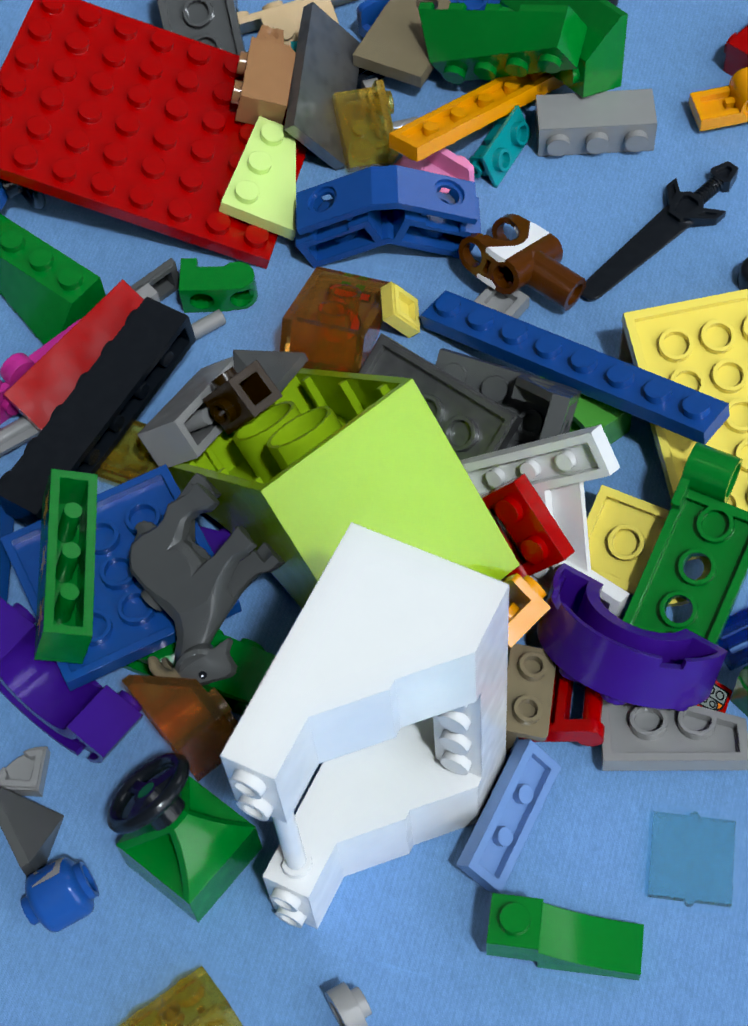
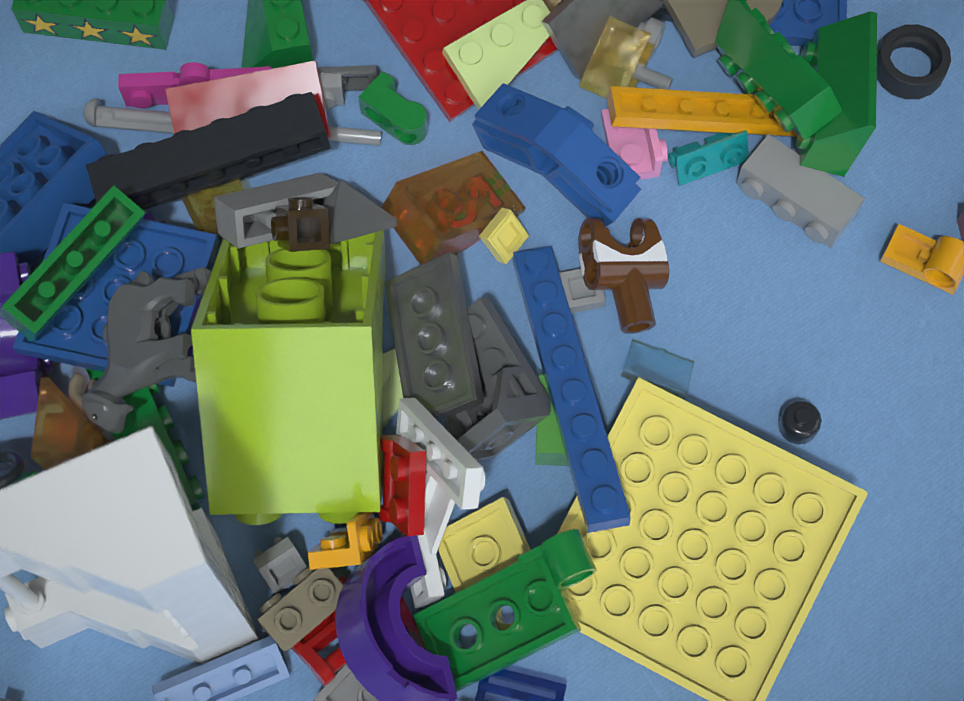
camera: 35 degrees right, 10 degrees up
(610, 313) = (658, 368): none -> clear light blue piece
(681, 212) = (793, 320): black sword -> none

